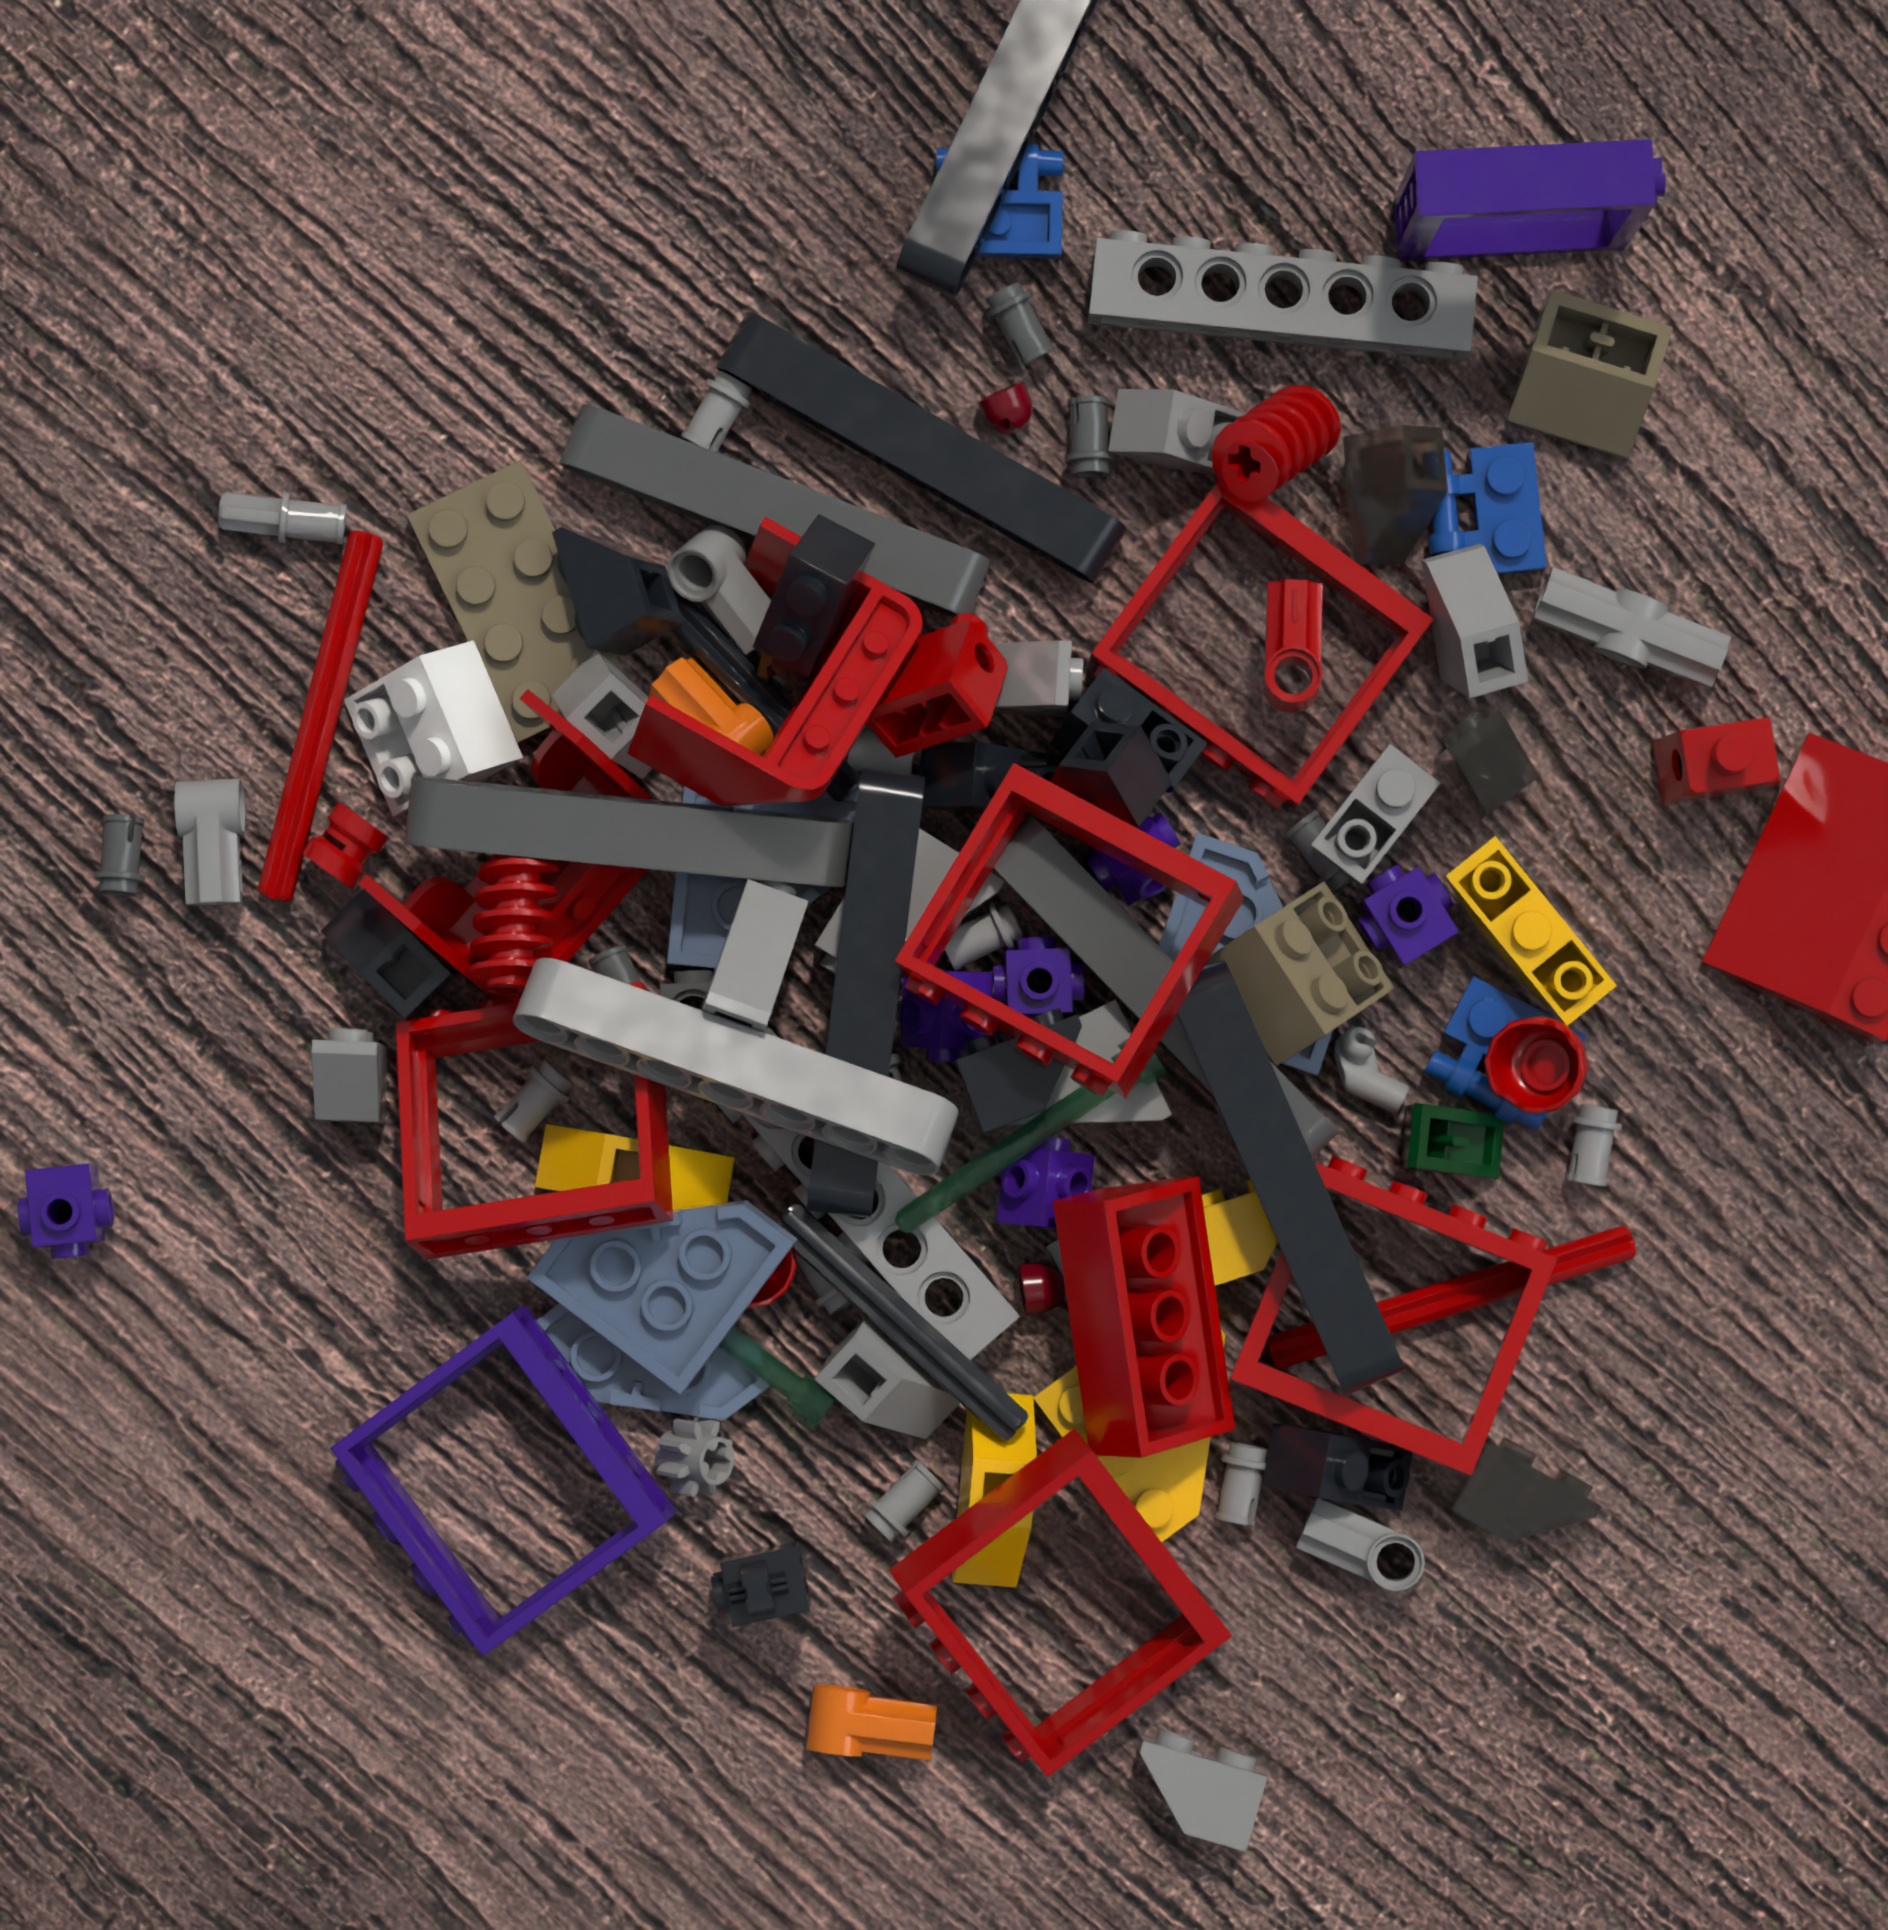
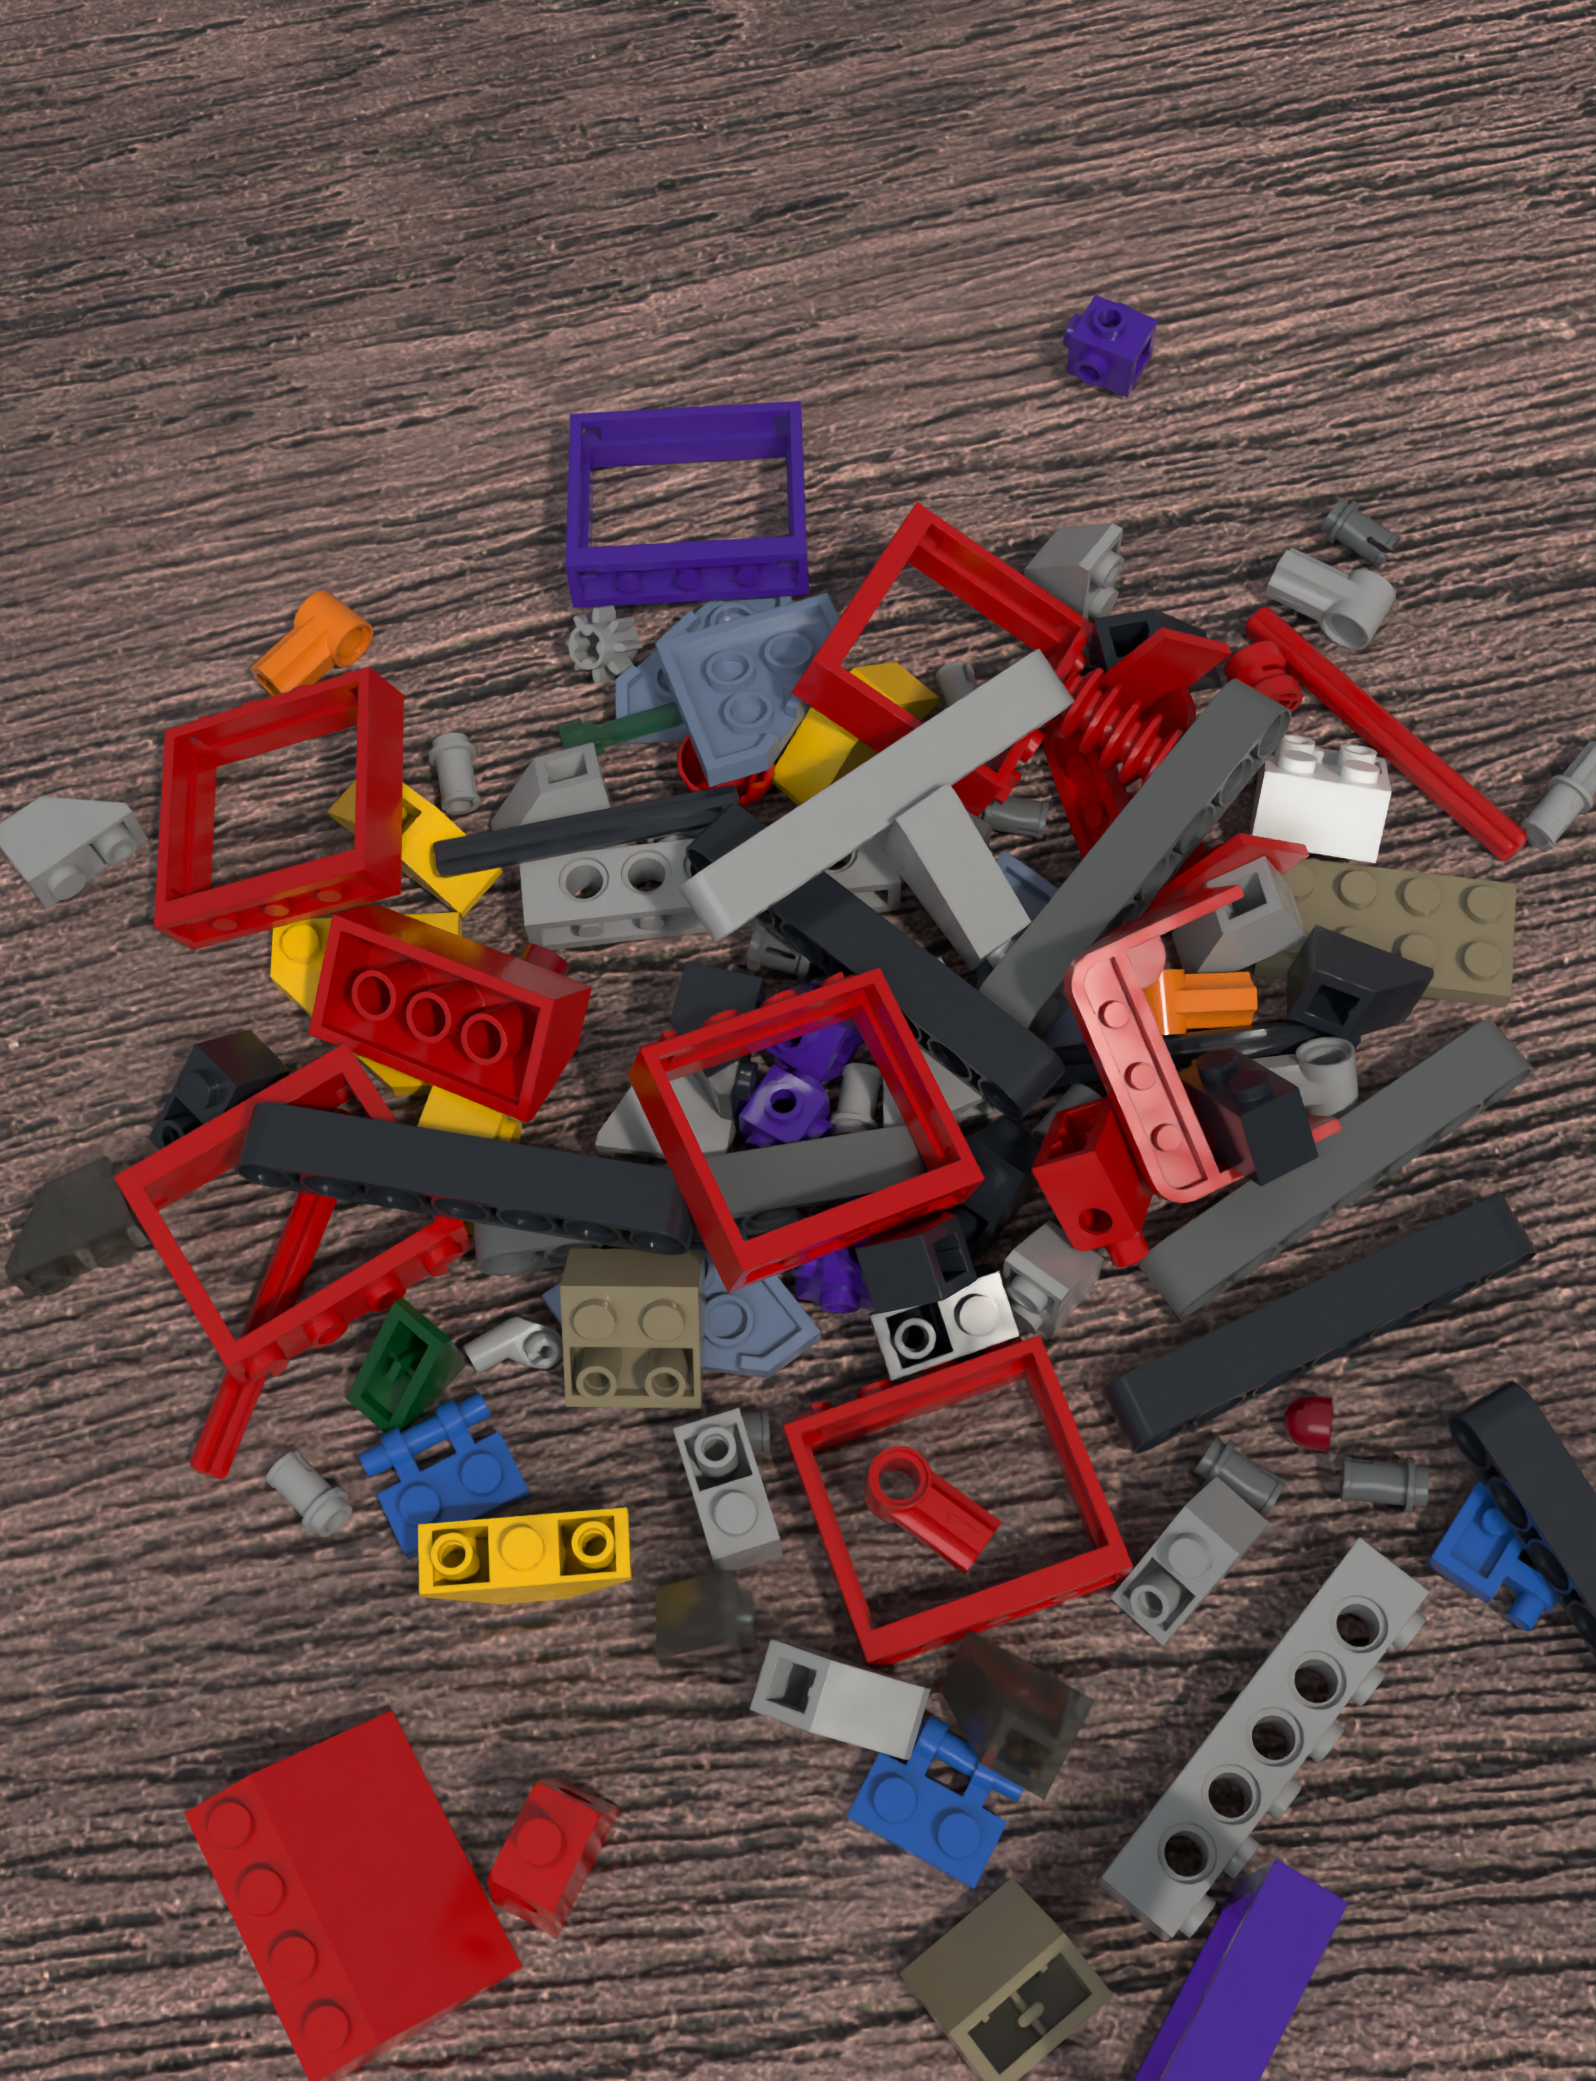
camera: 135 degrees right, 20 degrees down
(717, 411) = (1455, 1172): light grey pin -> none
(762, 1584) = (467, 620): black hinge -> none
(1012, 1149) = (643, 1142): clear green piece -> none
(1039, 1179) = (619, 1017): dark purple brick -> none
(1241, 1483) = (280, 1034): light grey pin -> none
(1275, 442) = (1130, 1625): red piece -> none
(1354, 1544) = (143, 1077): light grey piece -> none
(1404, 939) = (605, 1443): dark purple brick -> none
(1536, 1064) = (405, 1473): red hair -> none
(1631, 628) = (734, 1857): light grey piece -> none

